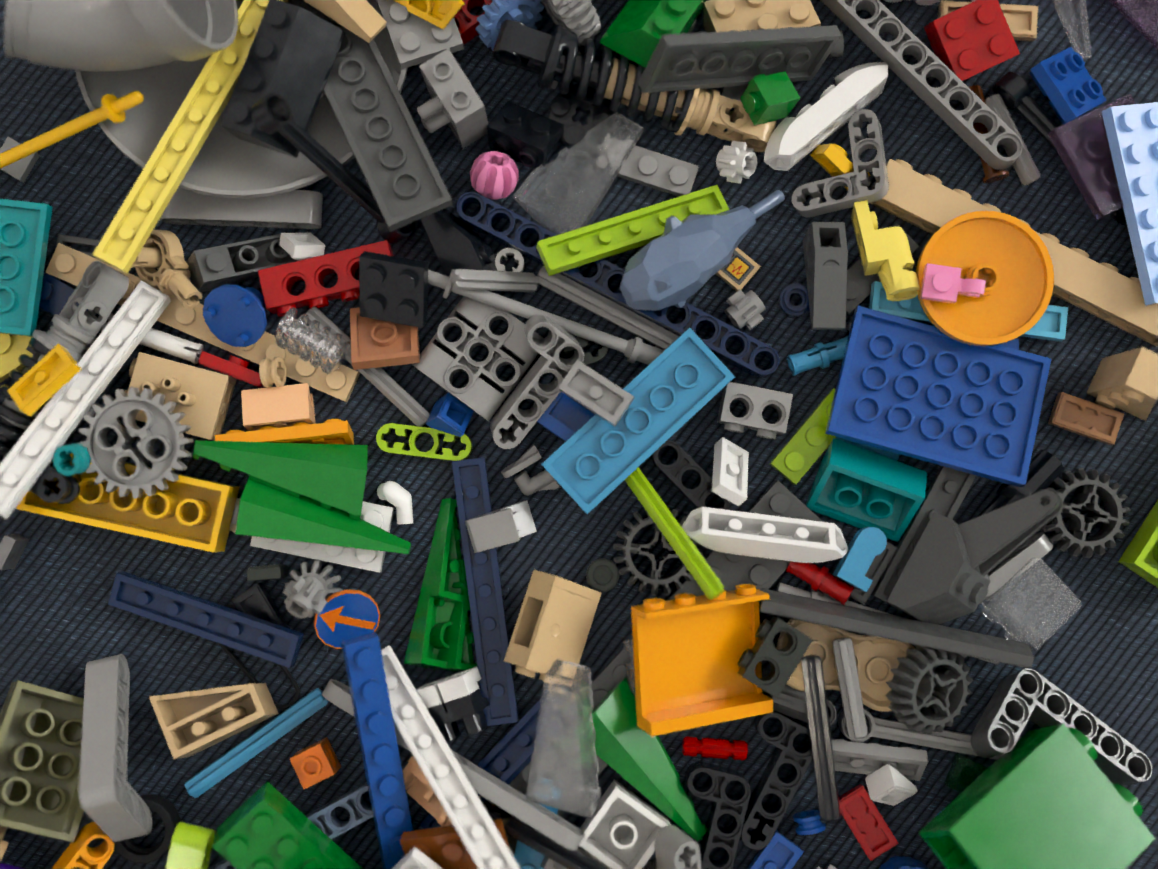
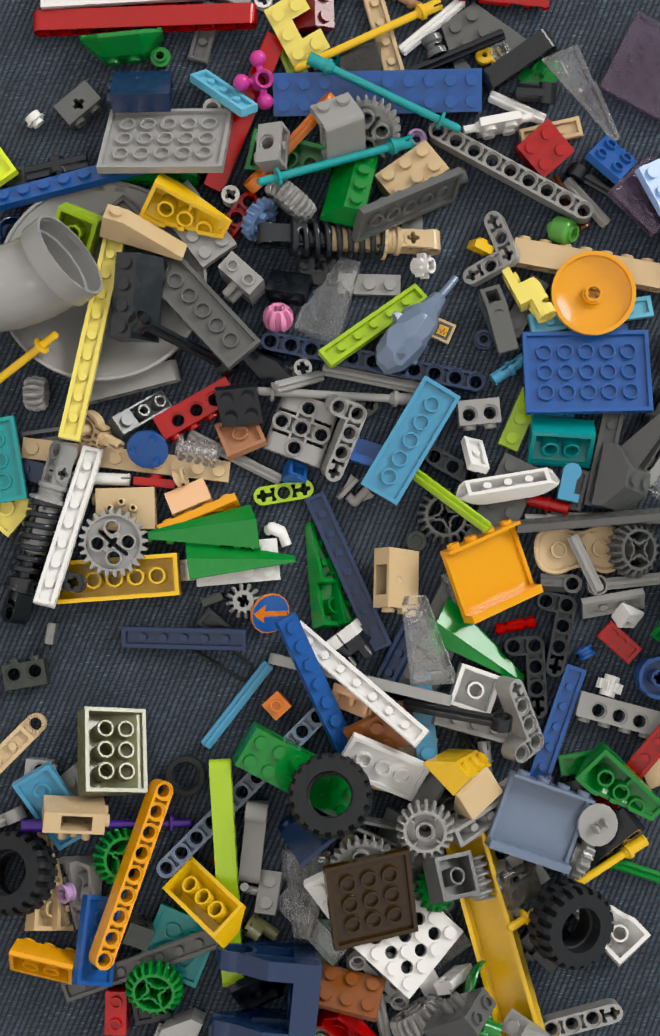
camera: 15 degrees left, 0 degrees up
(44, 380) = (49, 520): yellow plate -> none
(62, 458) = (73, 564): teal bush -> none
(94, 181) = (36, 393): none -> light grey gear
(104, 752) = (152, 731): light grey beam -> none
(208, 716) = (206, 694): tan wedge -> none
(301, 245) = (173, 394): white plate -> none
(305, 597) = (242, 605): light grey gear -> none
(500, 526) = (346, 529): light grey slope -> none
(596, 393) = (380, 431): light grey plate -> none
(744, 309) = (454, 354): light grey gear -> none
(769, 97) = (431, 221): green brick -> none
(782, 661) = (539, 559): pearl dark grey brick -> none
(815, 123) = (463, 228): white brick -> none
(820, 737) = (576, 597): black axle -> none
(944, 284) = (569, 303): bright pink plate -> none
(964, 170) = (562, 230): none -> bright green head

